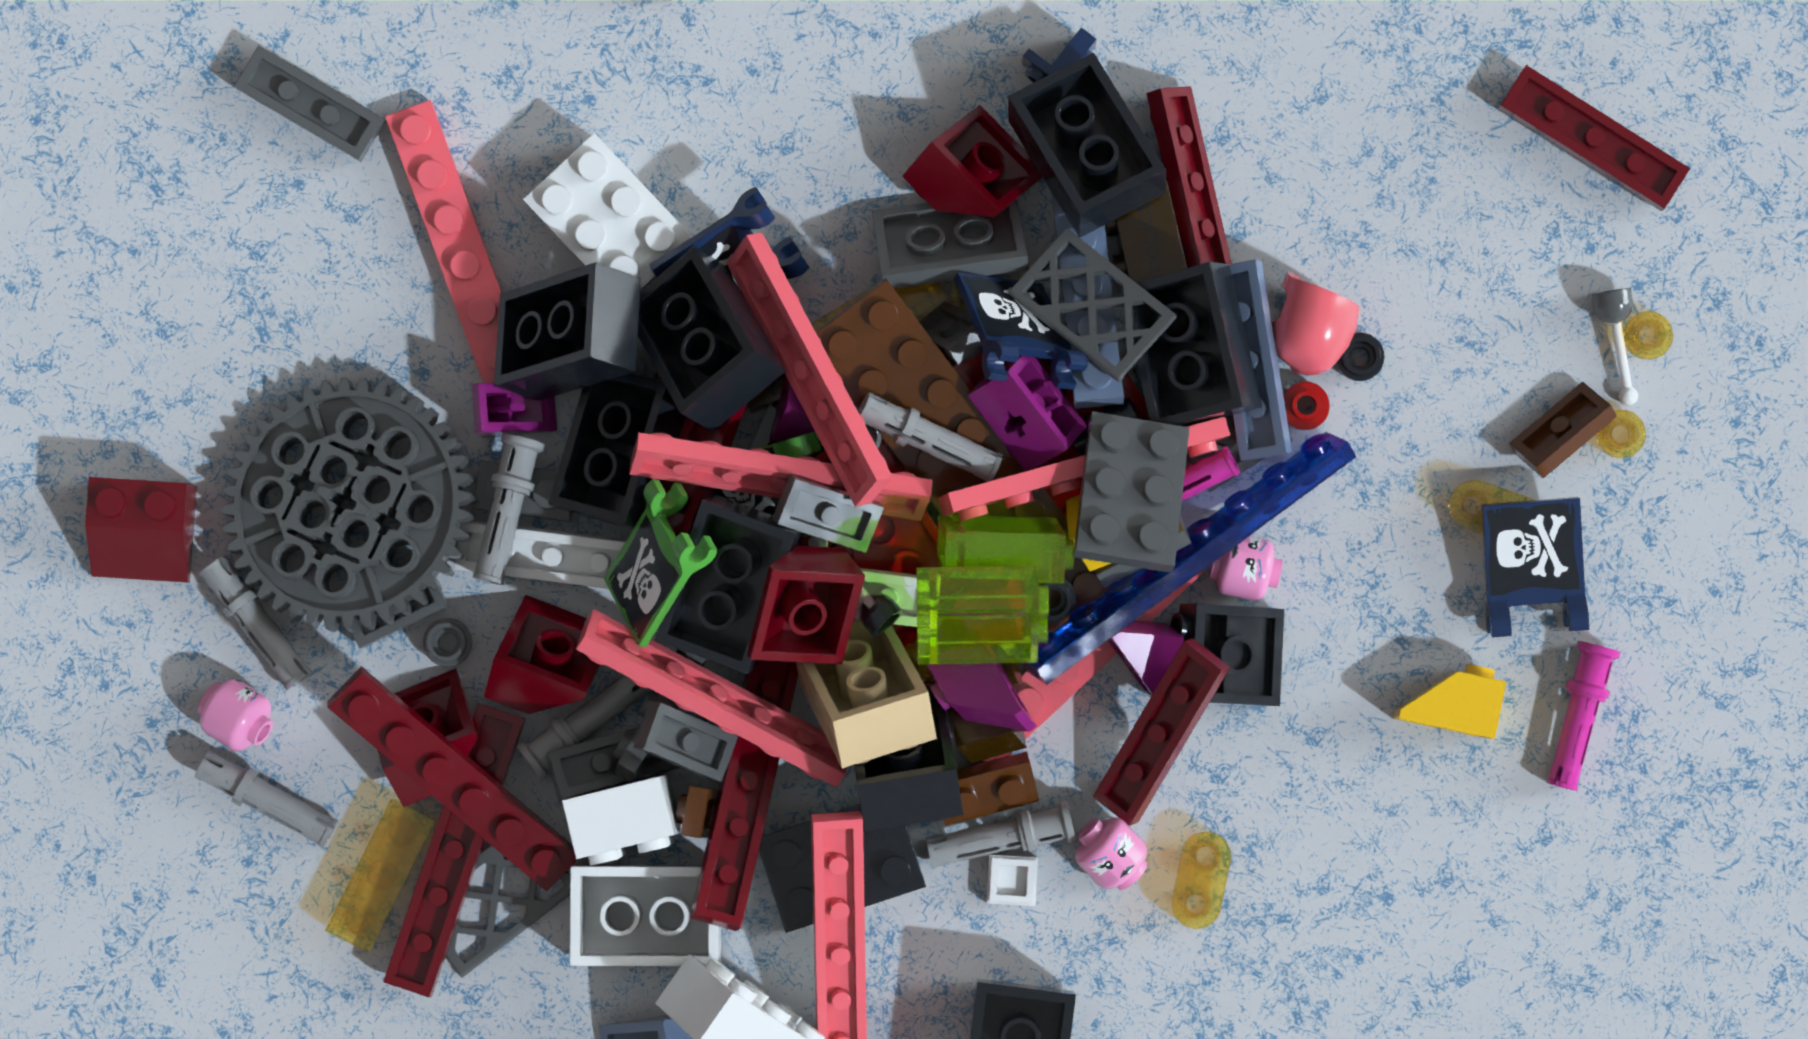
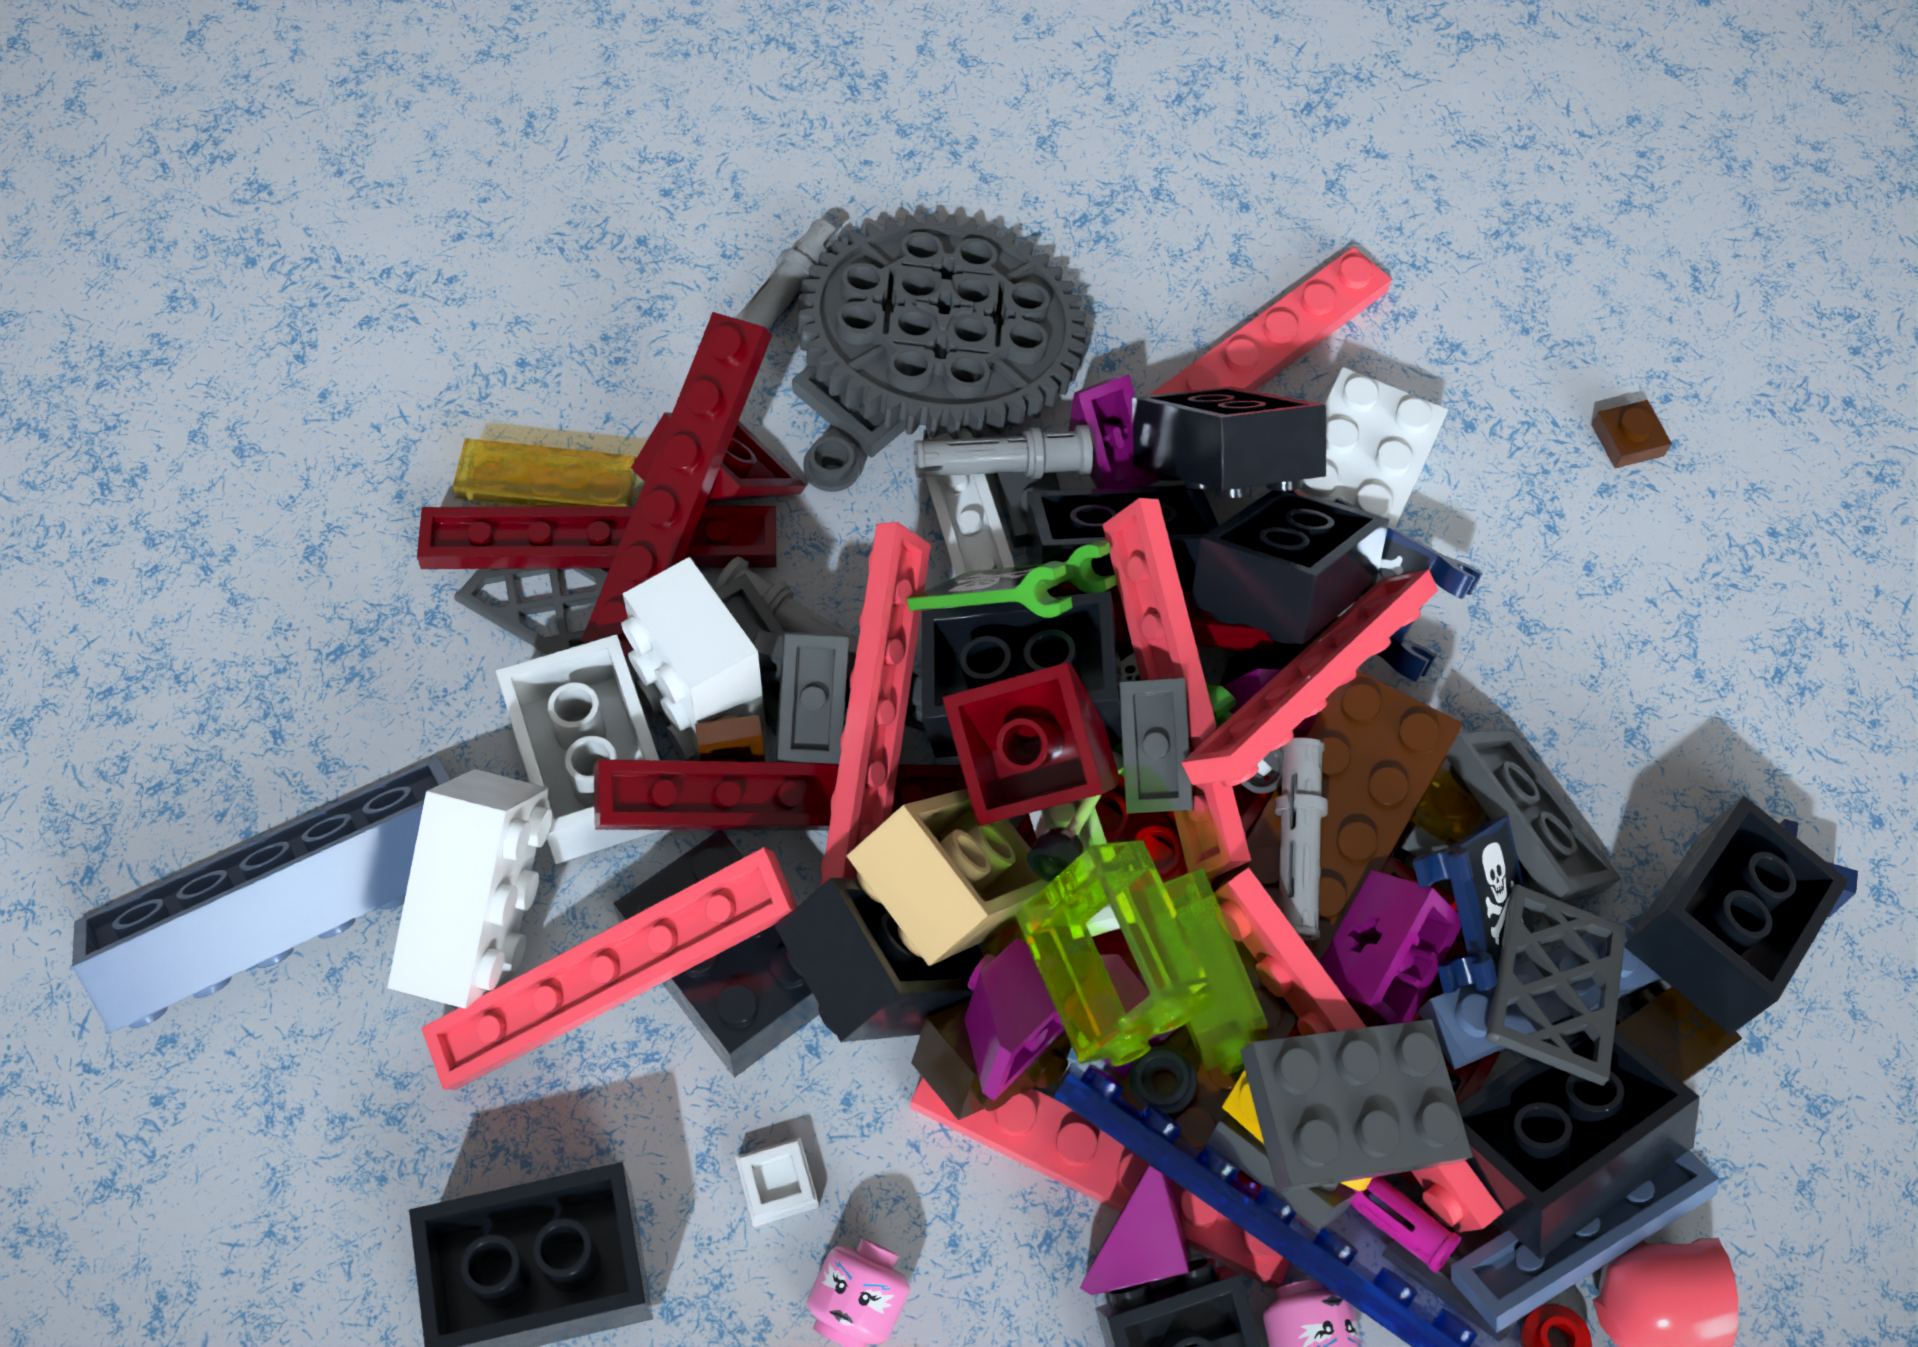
camera: 65 degrees right, 25 degrees down
(140, 529) = (841, 162): dark red slope -> none
(235, 715) = (678, 290): bright pink head -> none
(258, 794) = (601, 330): light grey pin -> none
(309, 103) = (1330, 184): dark grey plate -> none
(540, 661) = (832, 536): dark red slope -> none
(973, 168) = (1625, 809): dark red slope -> none
(995, 786) = (885, 1103): reddish brown plate -> none
(1024, 832) = (846, 1170): light grey pin -> none
(1161, 731) = (1052, 1291): dark red plate -> none
(1188, 175) = (1770, 1063): dark red plate -> none

